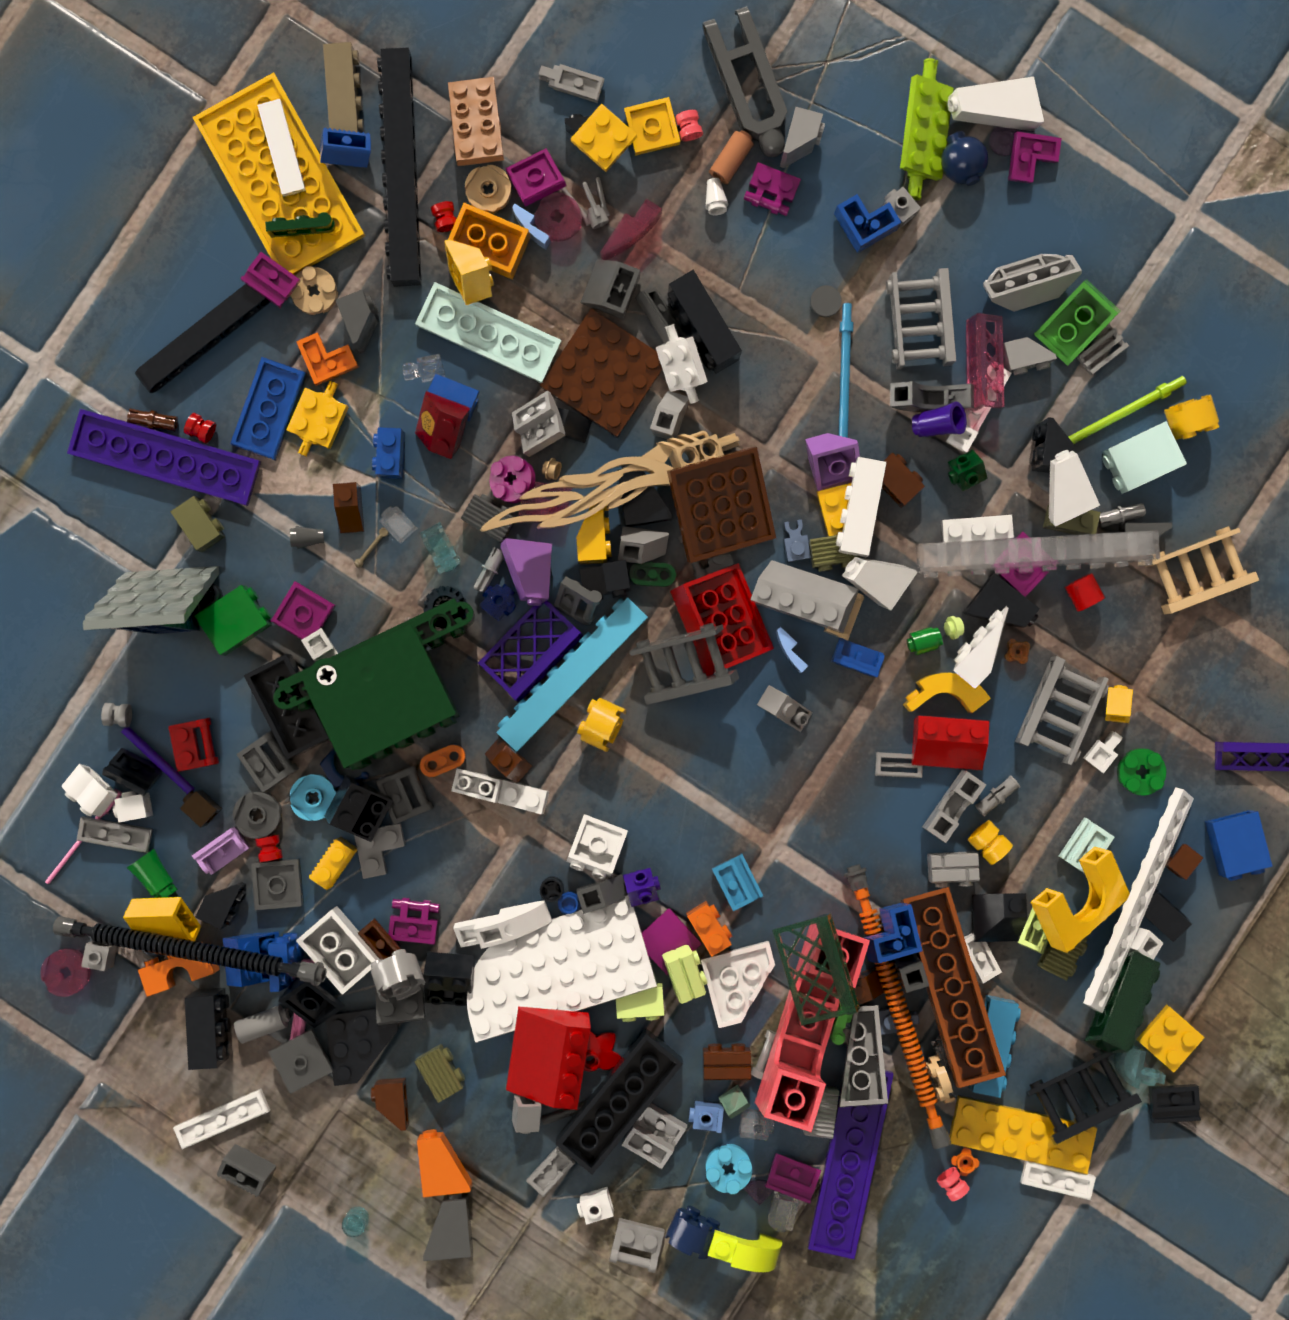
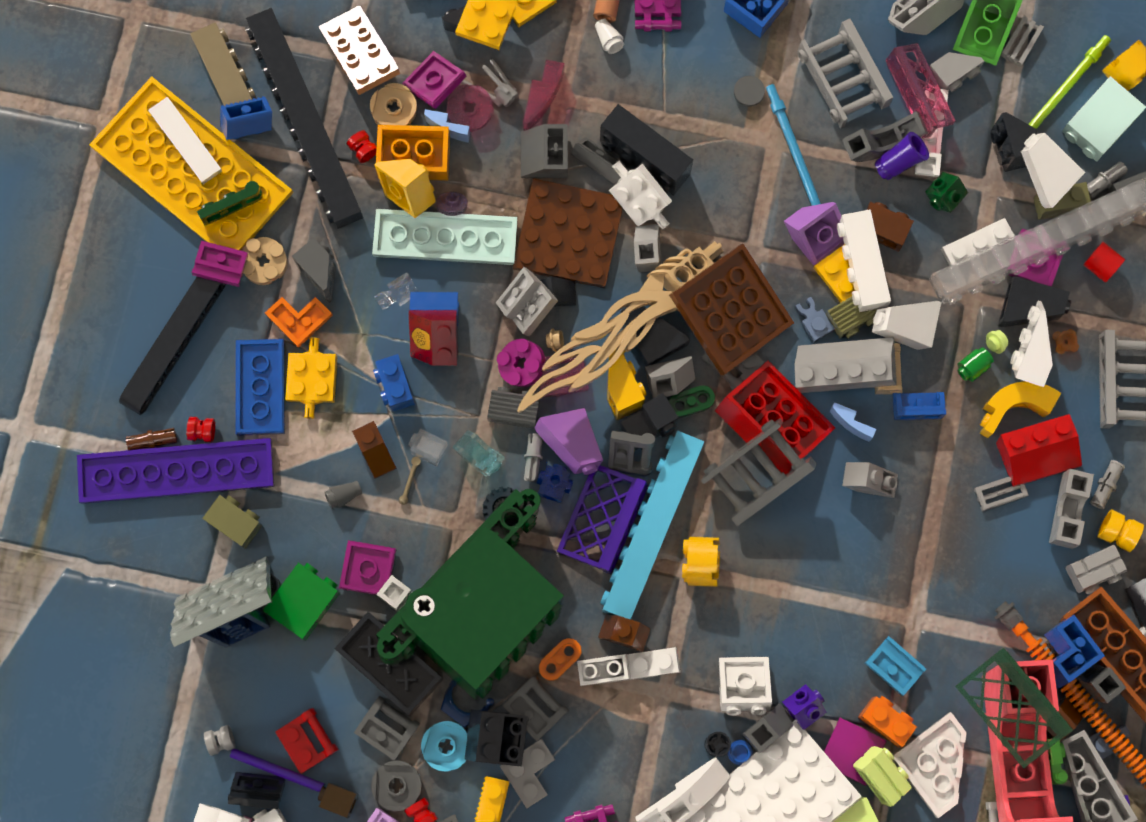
camera: 20 degrees left, 10 degrees down
(506, 303) = (452, 203): none -> piece

